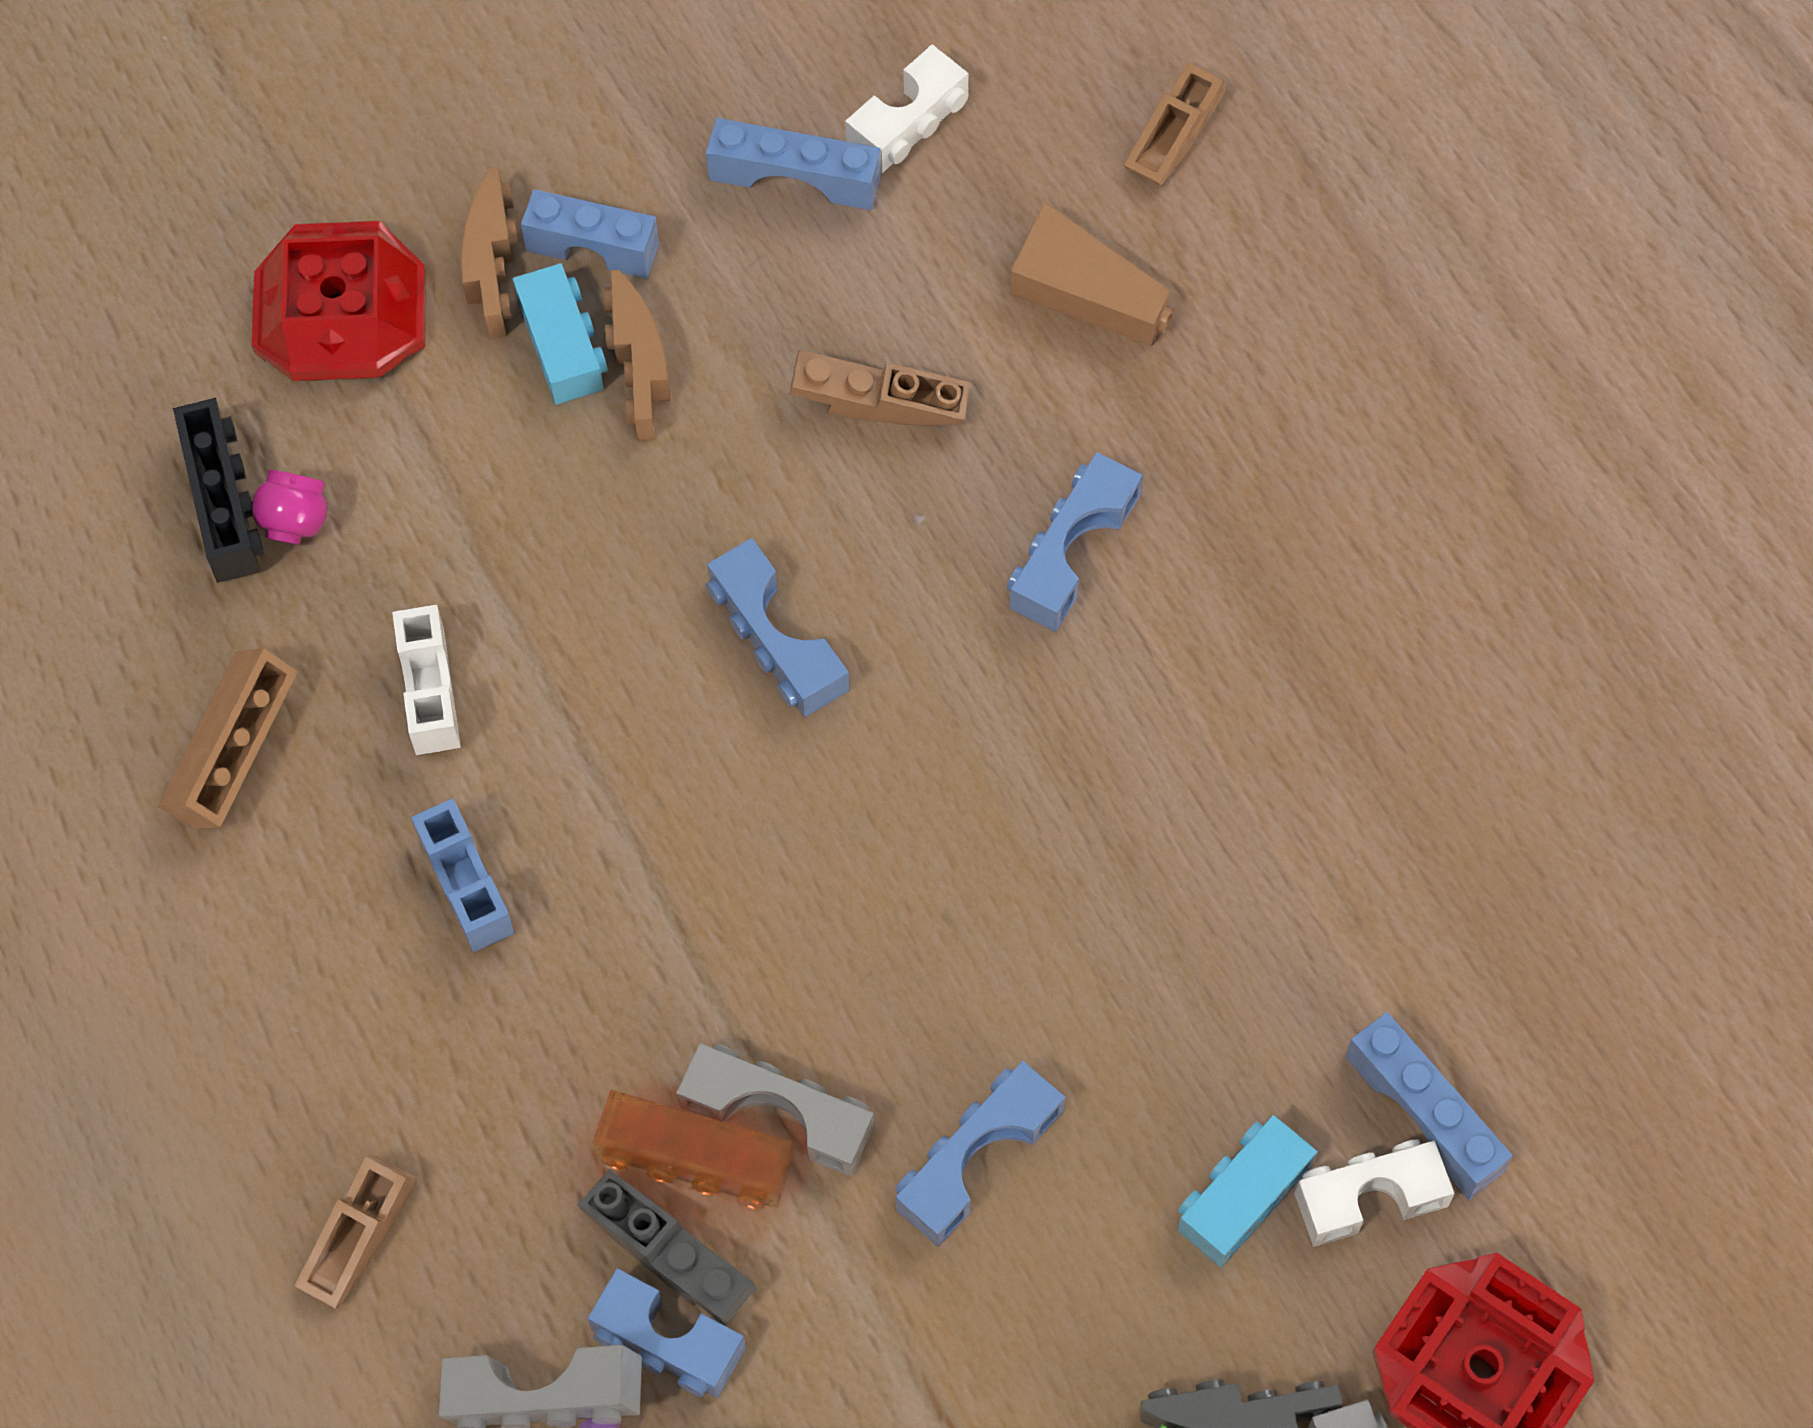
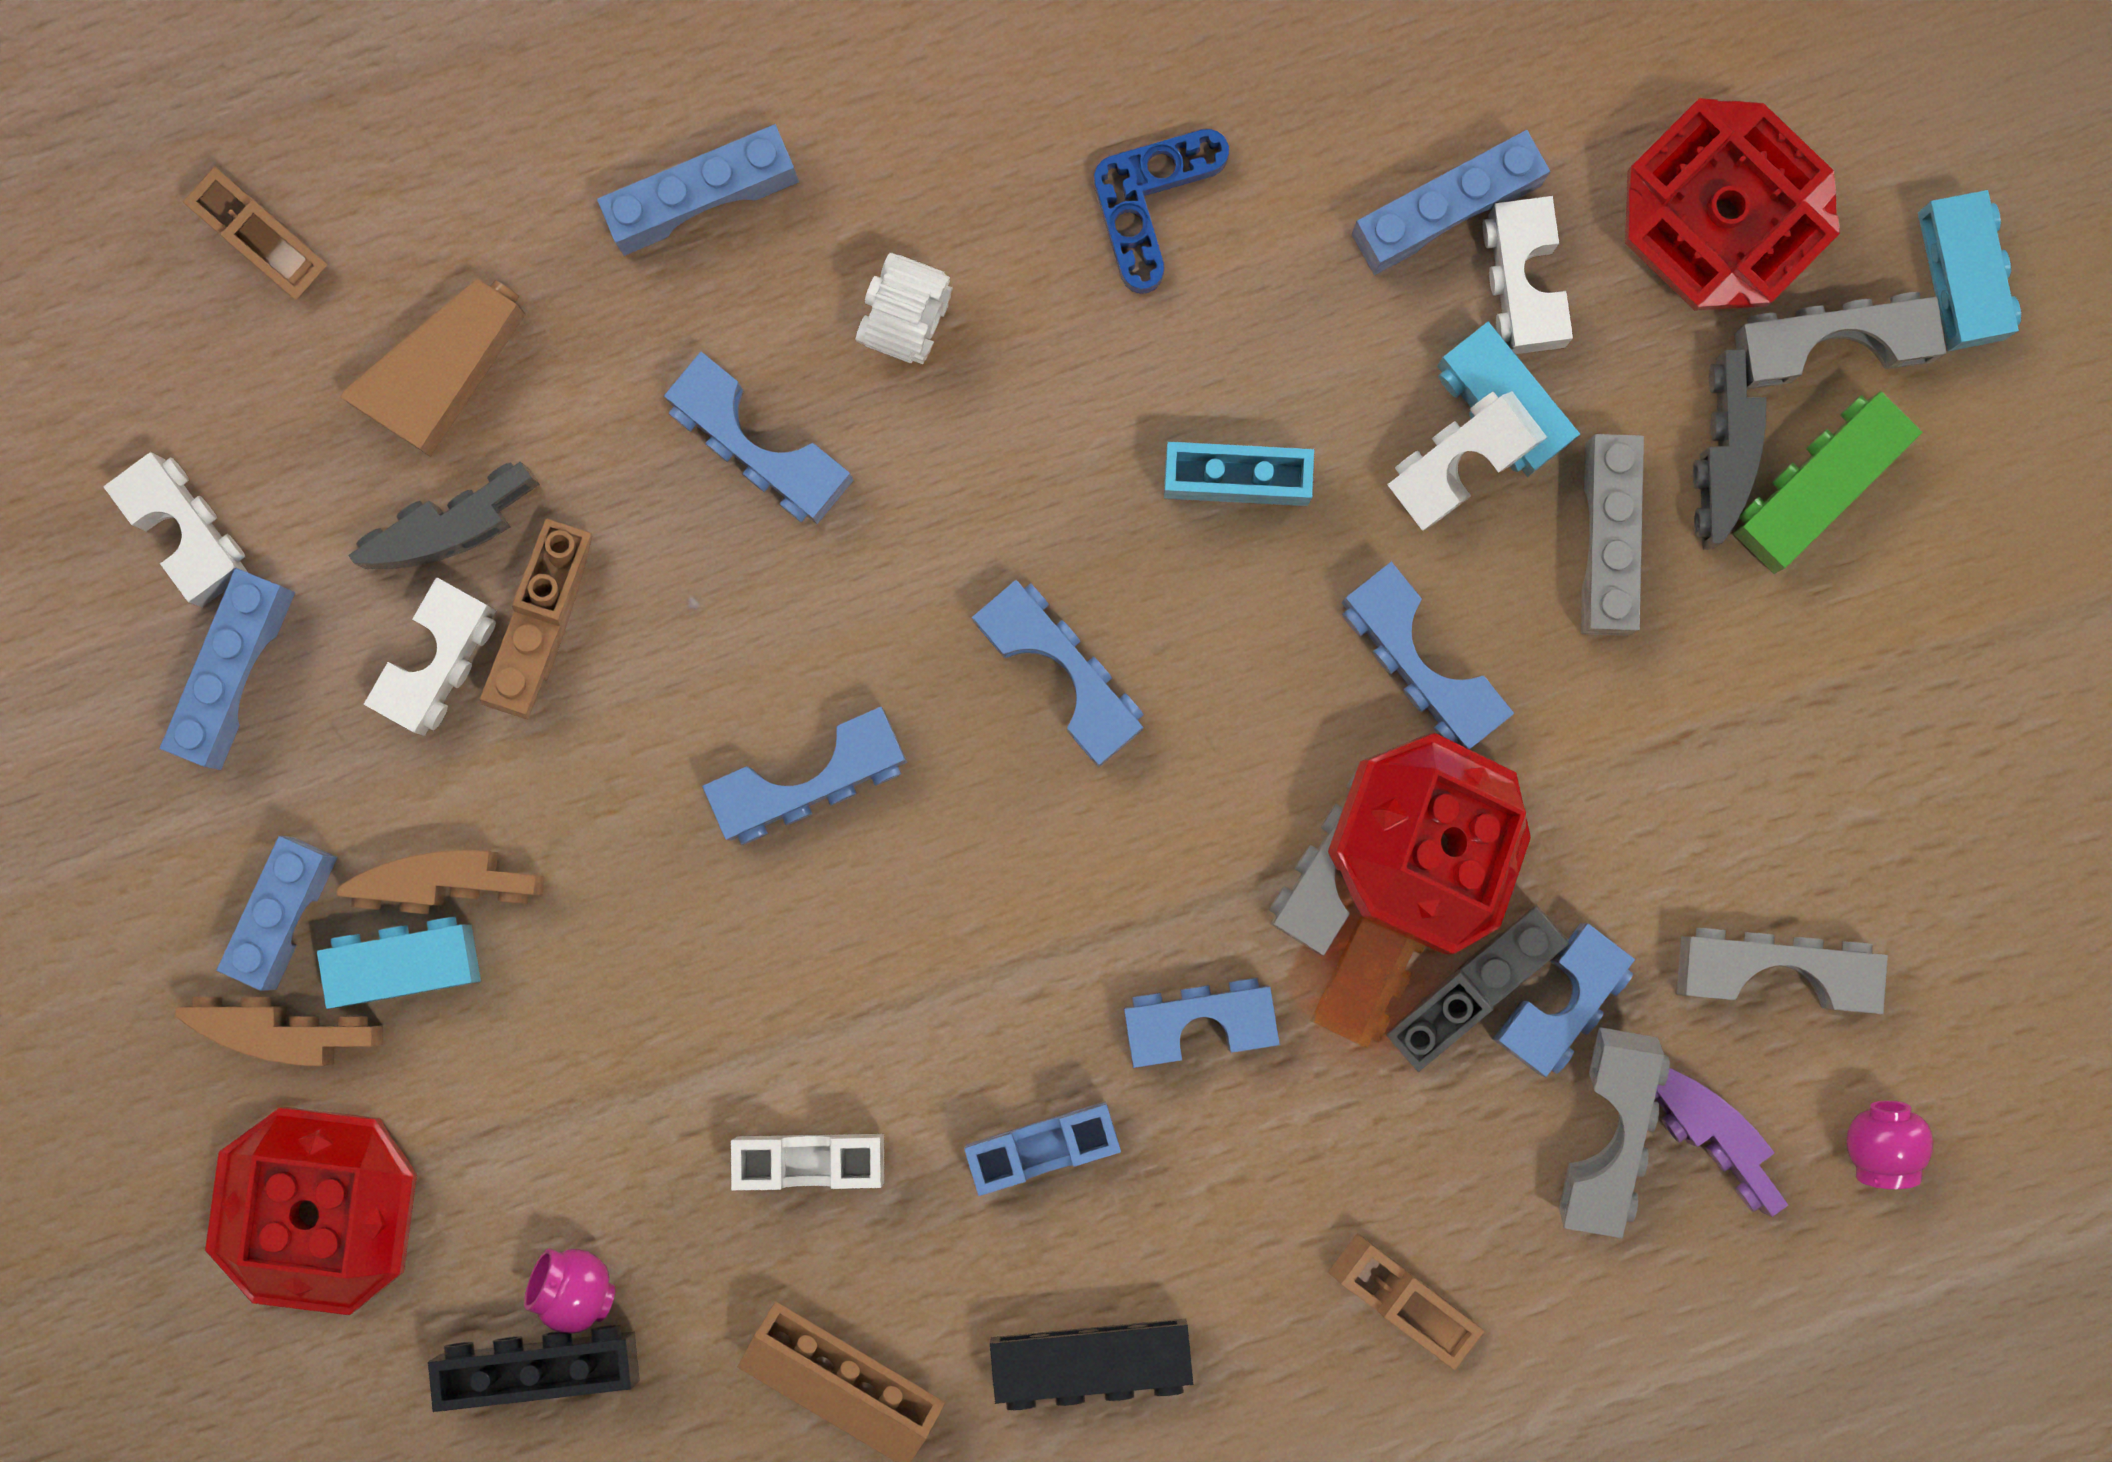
camera: 75 degrees left, 20 degrees up
(269, 950) = (1091, 1362): none -> black brick
(609, 1037) = (1157, 1025): none -> medium blue arch
(788, 1123) = (1394, 850): none -> red piece
(862, 330) = (419, 697): none -> white arch
(871, 866) = (1020, 626): none -> medium blue arch
(942, 304) = (430, 535): none -> dark grey slope
(1123, 949) = (1238, 473): none -> medium azure brick
(1151, 1127) = (1431, 483): none -> white arch
(1170, 1301) = (1615, 535): none -> light grey arch
(1217, 635) = (904, 309): none -> white brick
(1316, 485) = (730, 173): none -> medium blue arch
(1381, 827) = (1142, 183): none -> blue beam

